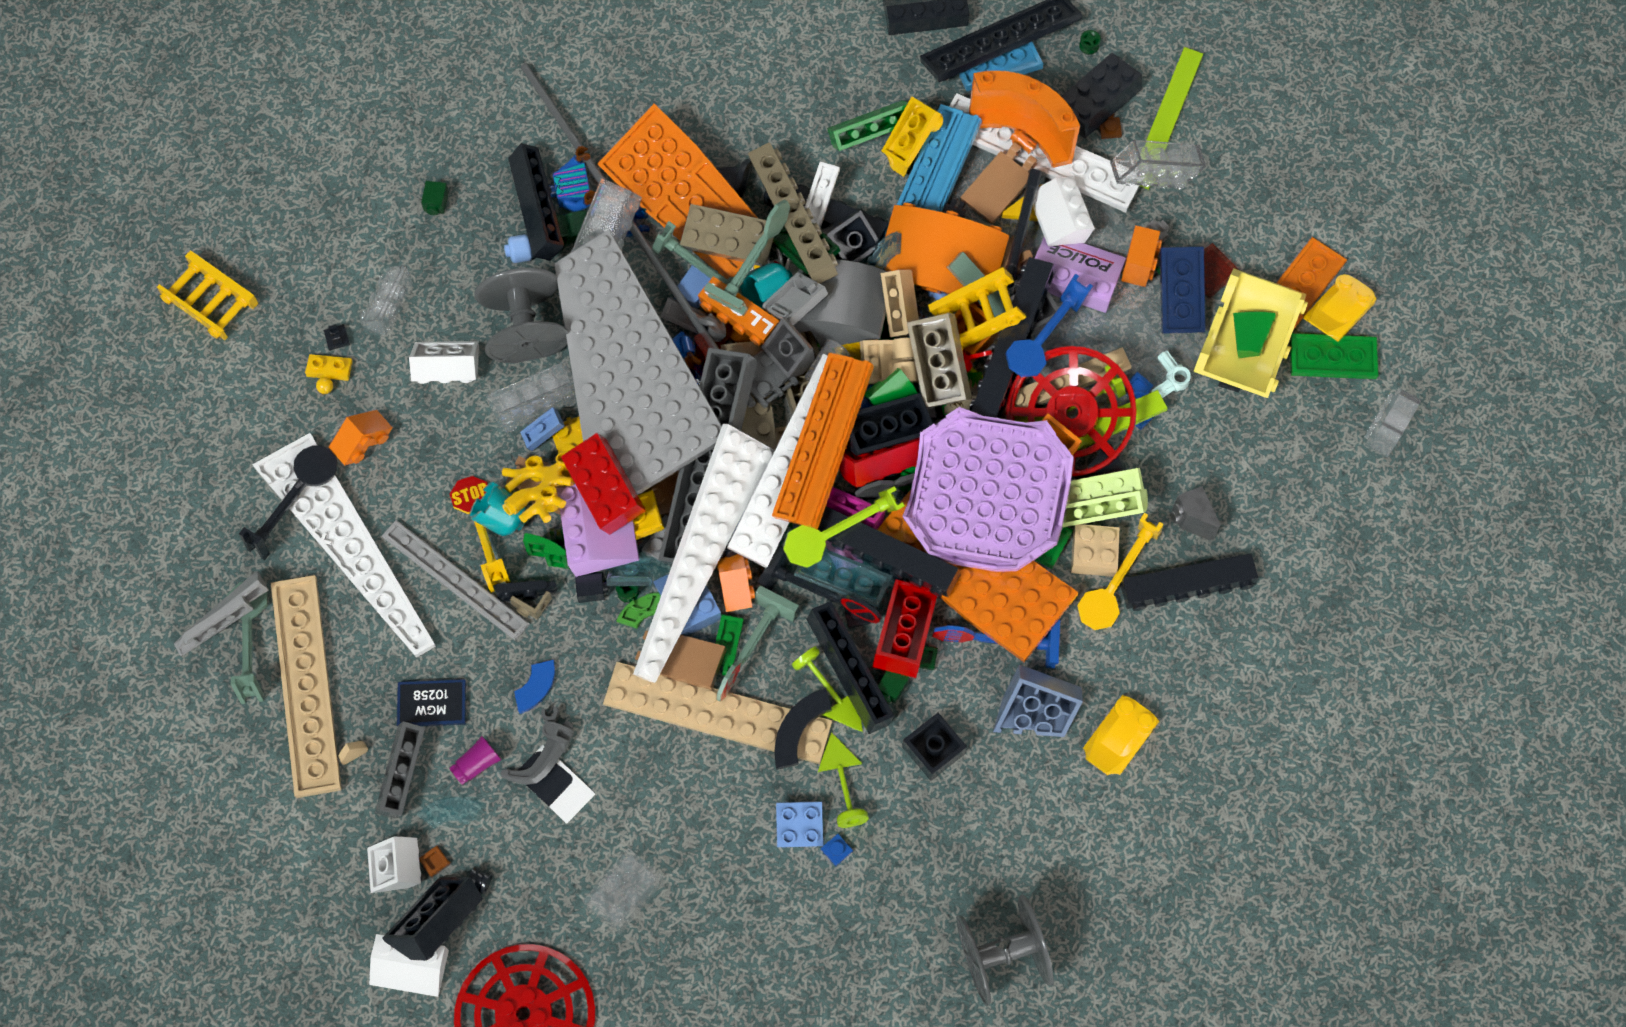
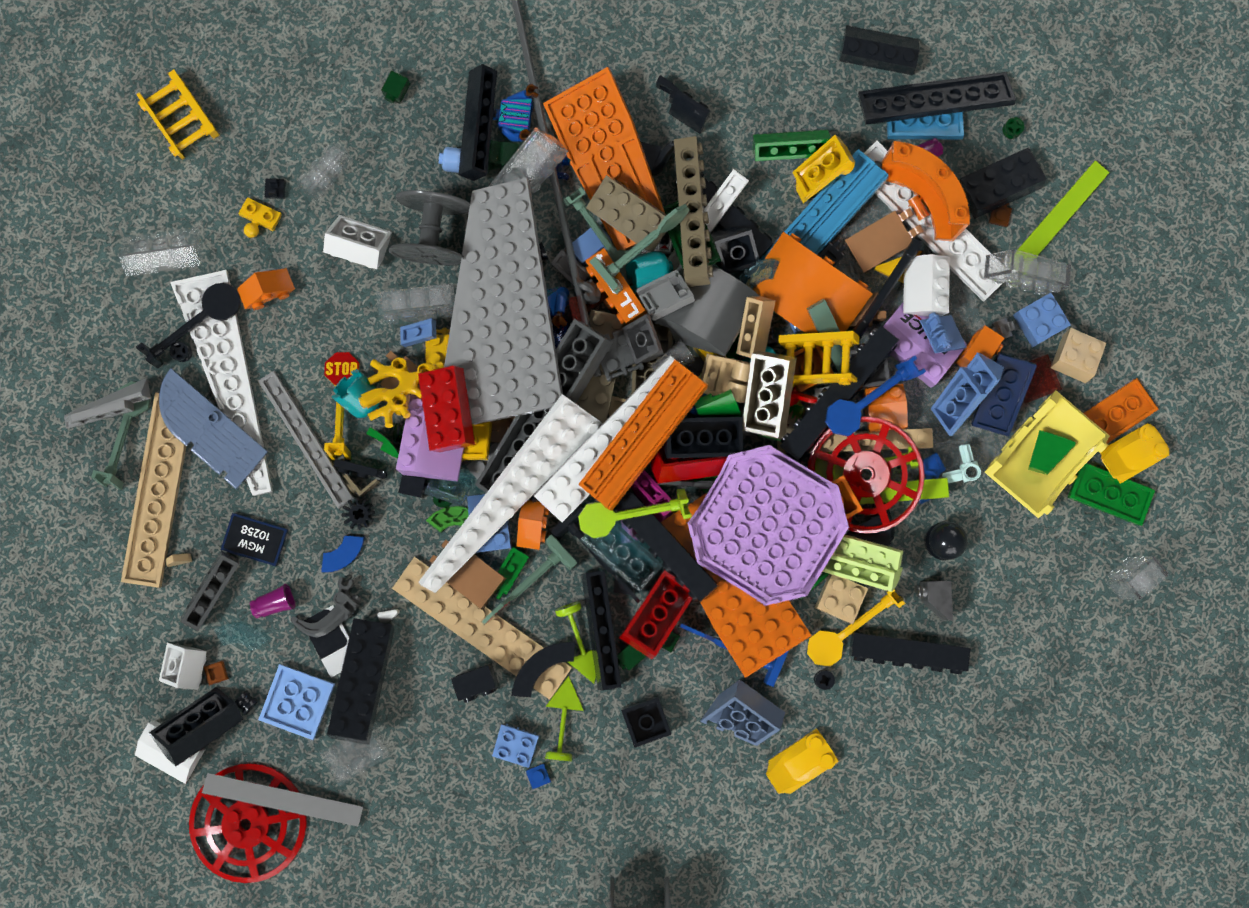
camera: 20 degrees right, 15 degrees up
(233, 437) = (161, 251): none -> clear slope
(284, 528) = (176, 352): none -> black wheel
(350, 603) = (215, 435): none -> sand blue door
(531, 639) = (359, 520): none -> black gear
(537, 860) = (296, 702): none -> light blue plate
(557, 970) = (282, 799): none -> light grey tile
(604, 806) = (361, 681): none -> black brick
(609, 732) = (387, 616): none -> white slope
(731, 767) = (474, 682): none -> black brick
(735, 117) = (666, 86): none -> black slope
(753, 124) = (689, 111): none -> black slope
(1068, 332) = (888, 406): none -> orange slope
(1095, 252) = (942, 333): none -> medium blue hinge
(1110, 645) = (821, 677): none -> black wheel
(1141, 297) = (966, 392): none -> medium blue slope
(1182, 455) = (946, 541): none -> black tile
(1192, 210) = (1041, 319): none -> medium blue brick
(1243, 232) = (1078, 355): none -> tan brick

